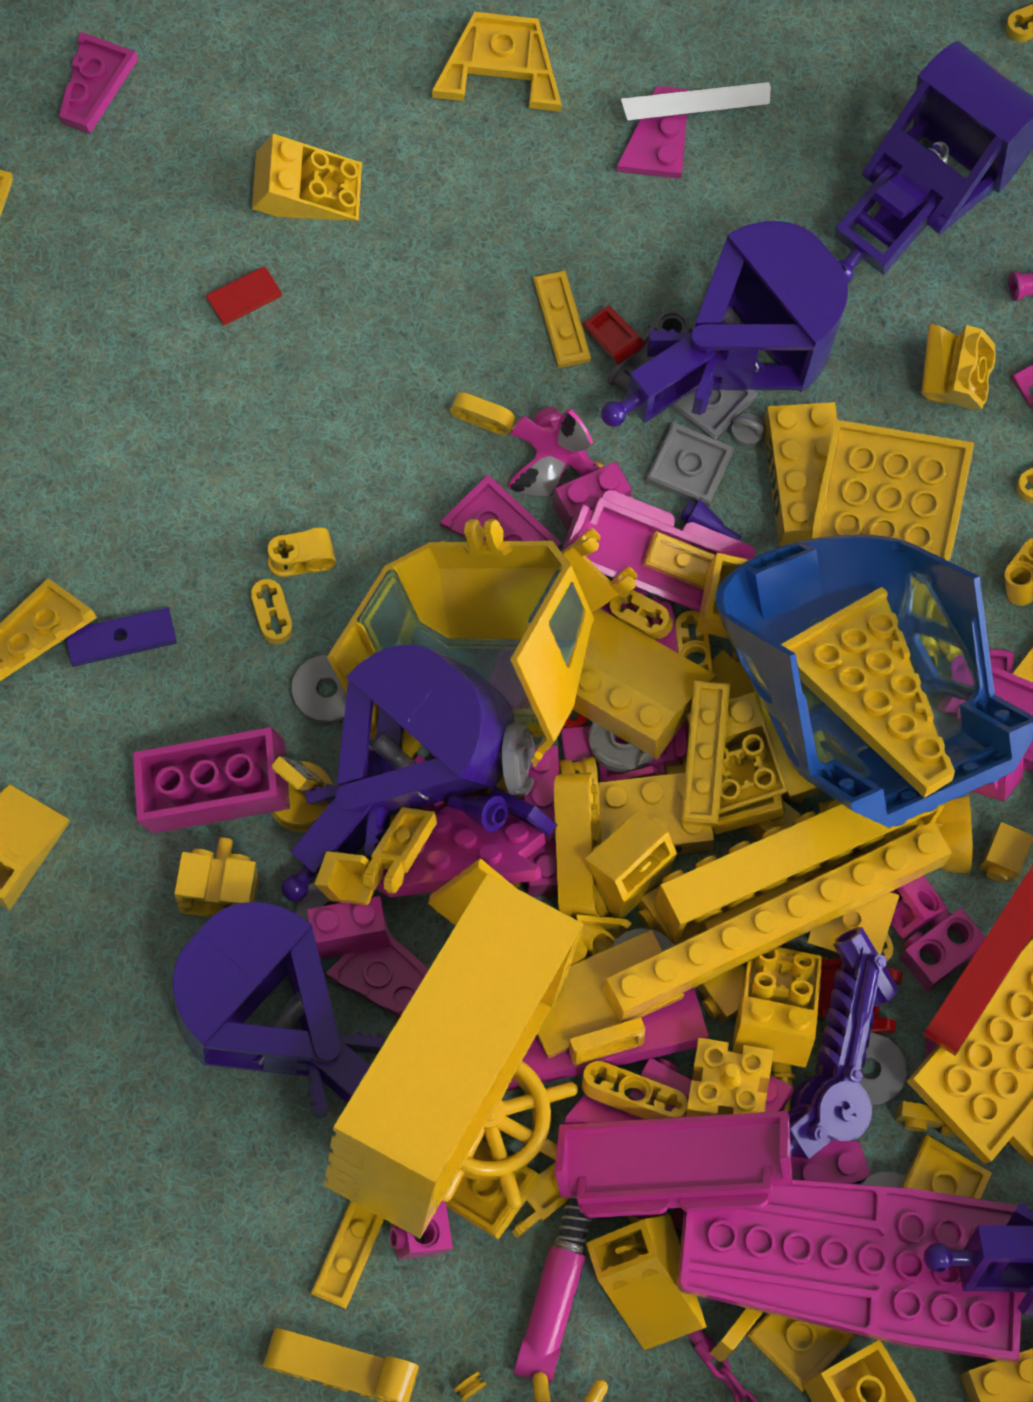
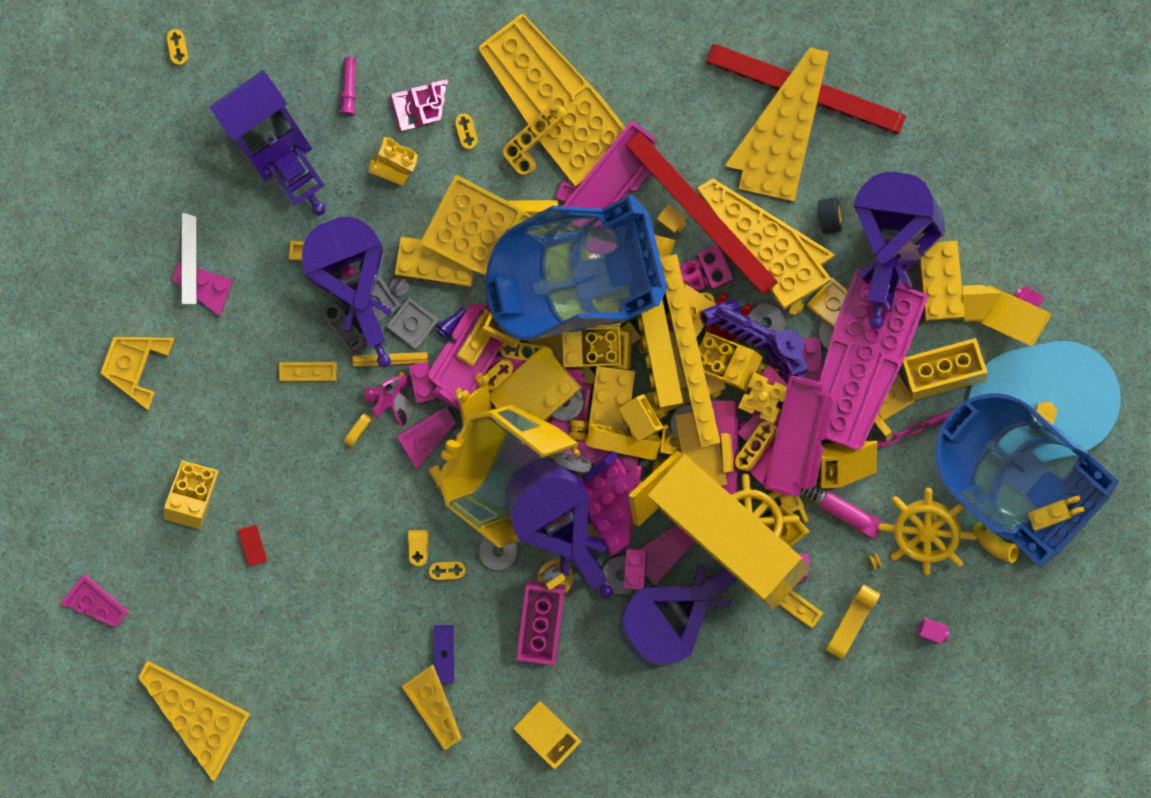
camera: 70 degrees left, 15 degrees up
(214, 884) = (595, 630): yellow brick -> none
(342, 878) = (616, 564): yellow panel -> none
(399, 848) = (607, 533): yellow hinge -> none
(487, 811) = (597, 484): dark purple cone -> none
(613, 334) = (327, 346): red tile -> none
(619, 442) = (396, 359): none -> yellow axle
(705, 753) = (590, 363): yellow tile -> none
(866, 678) = (579, 273): yellow wing -> none

